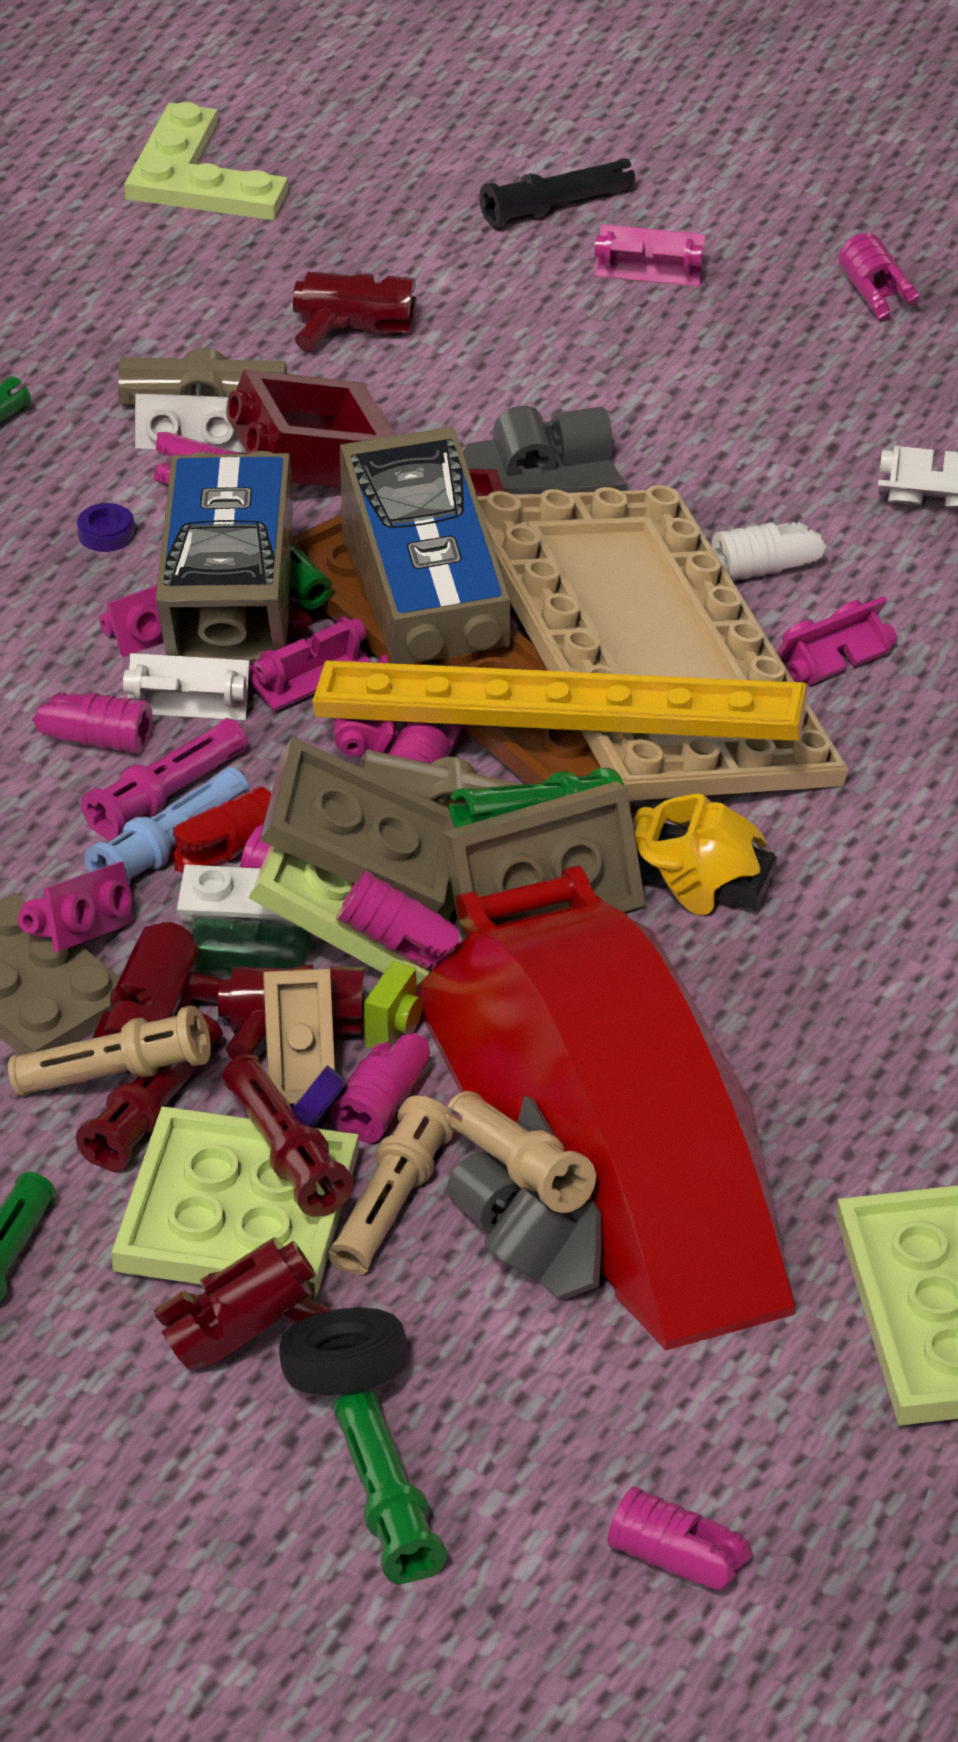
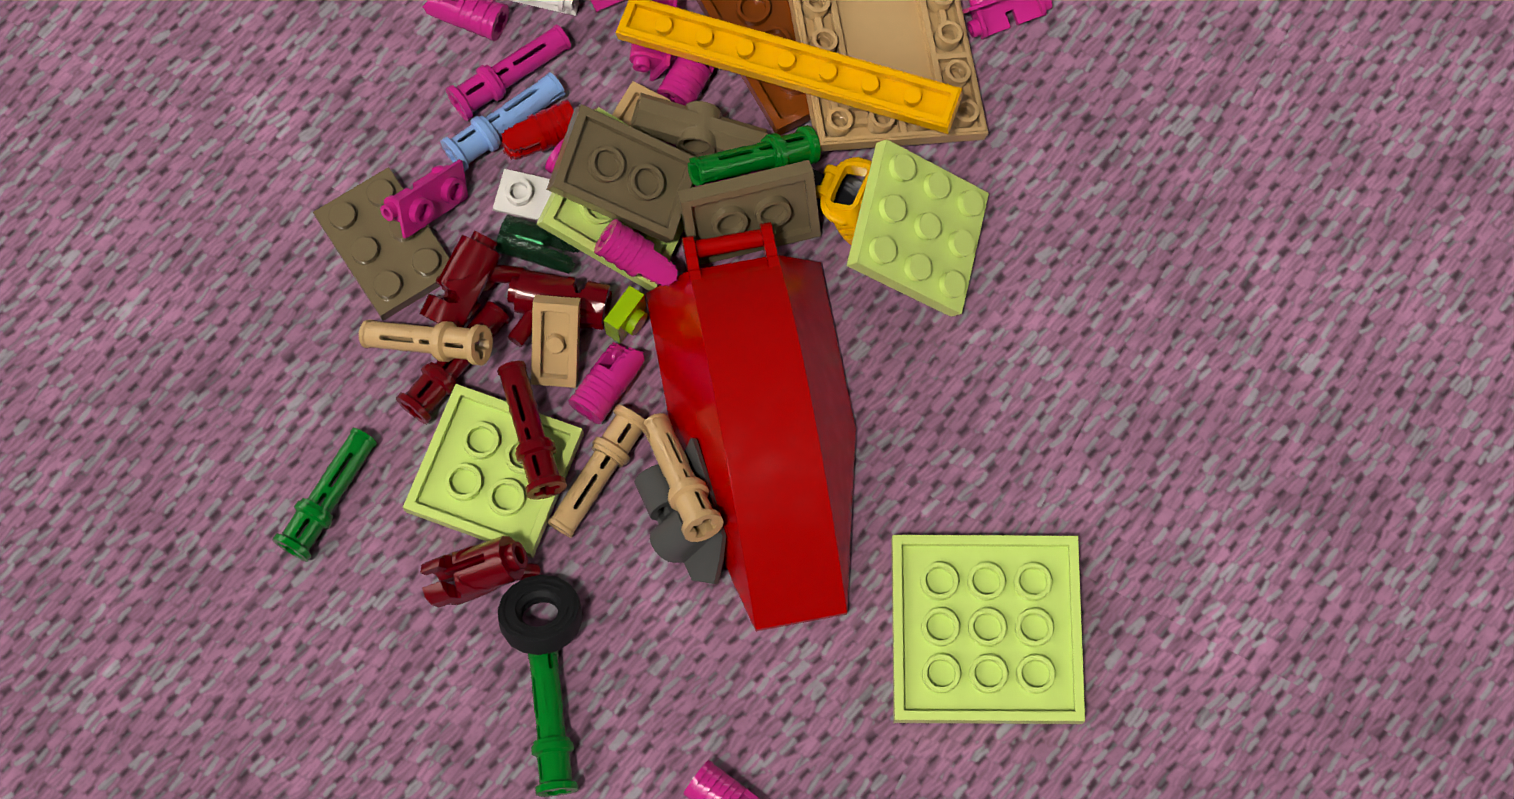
camera: 10 degrees right, 30 degrees up
(318, 1096) = (558, 395): dark purple tile -> none
(783, 859) = (918, 228): none -> yellowish green plate

